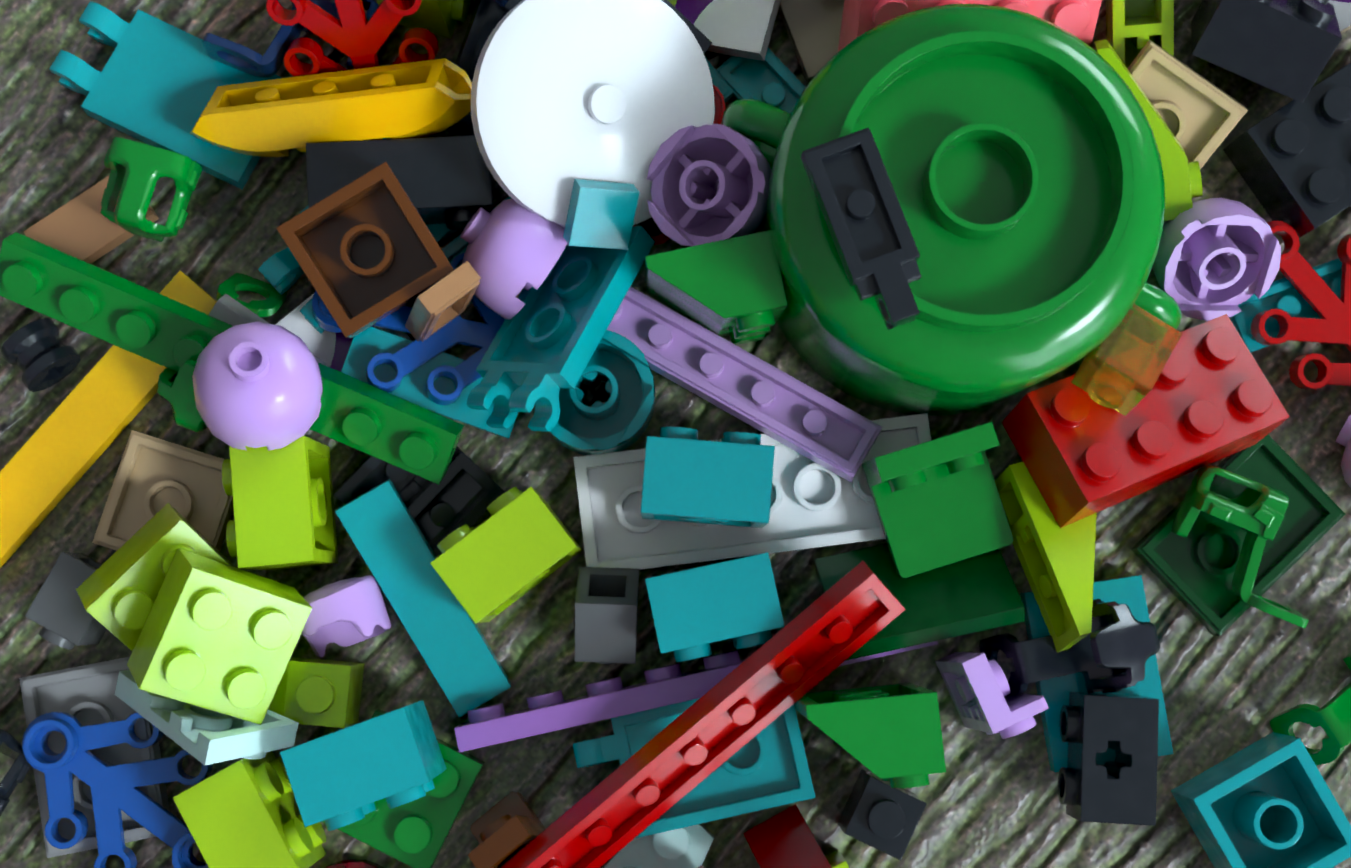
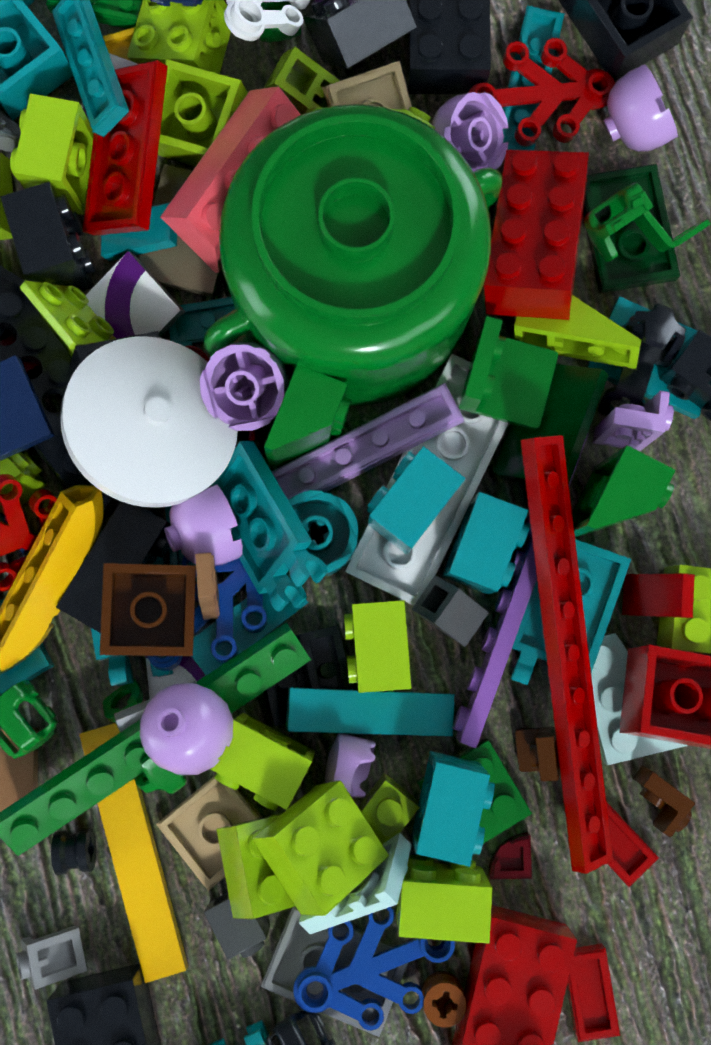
camera: 55 degrees left, 0 degrees up
(601, 214) = (218, 458): teal tile -> none
(866, 223) = (341, 297): black hinge -> none
(881, 815) = (663, 529): black brick -> none
(1127, 361) = (509, 215): clear yellow brick -> none

